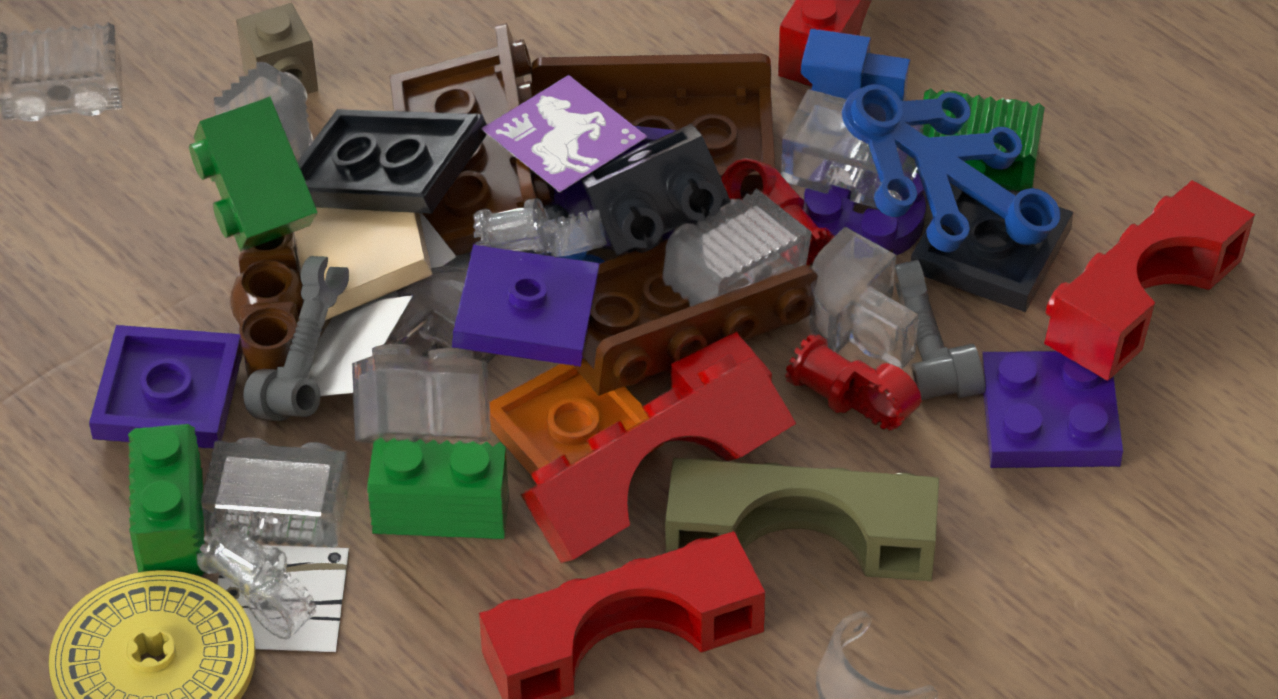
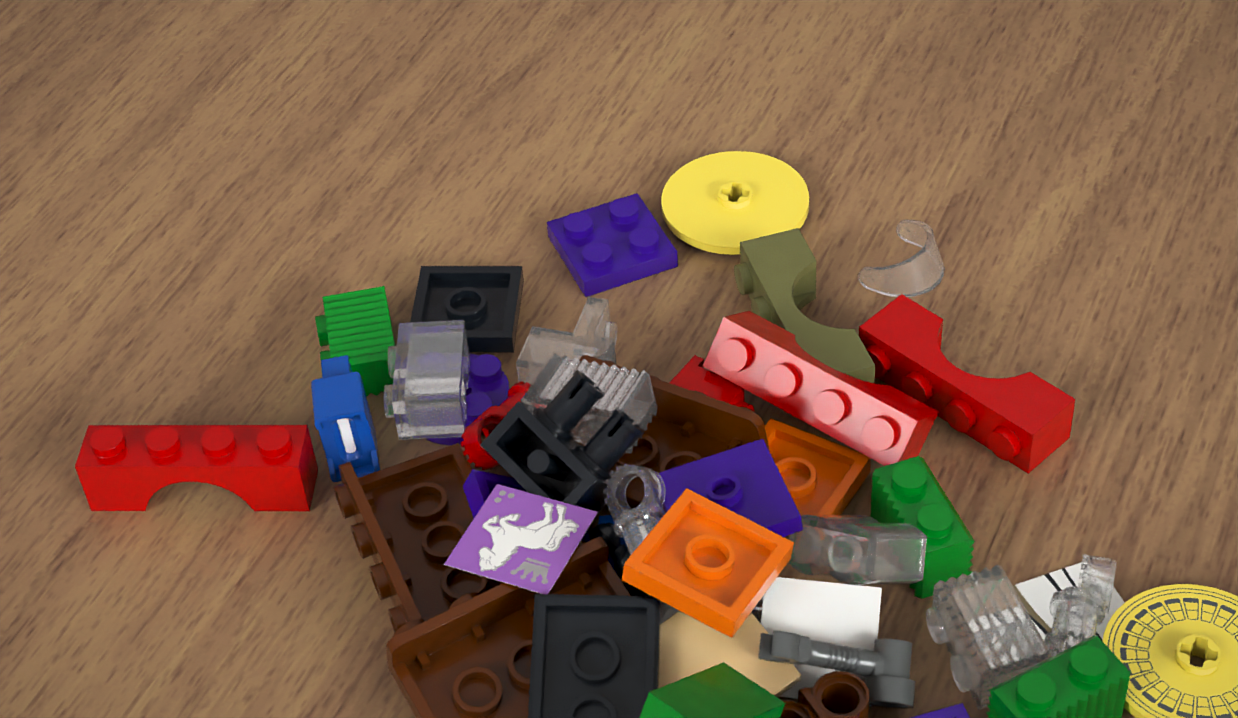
camera: 110 degrees left, 5 degrees down
(427, 228) = (708, 562): none -> orange plate
(854, 383) = (657, 335): red connector -> none
(941, 163) = (428, 323): blue plant -> none
(941, 369) = (603, 283): dark grey brick -> none
(1089, 588) = (703, 195): none -> light yellow piece
(1106, 311) = (530, 207): red arch -> none

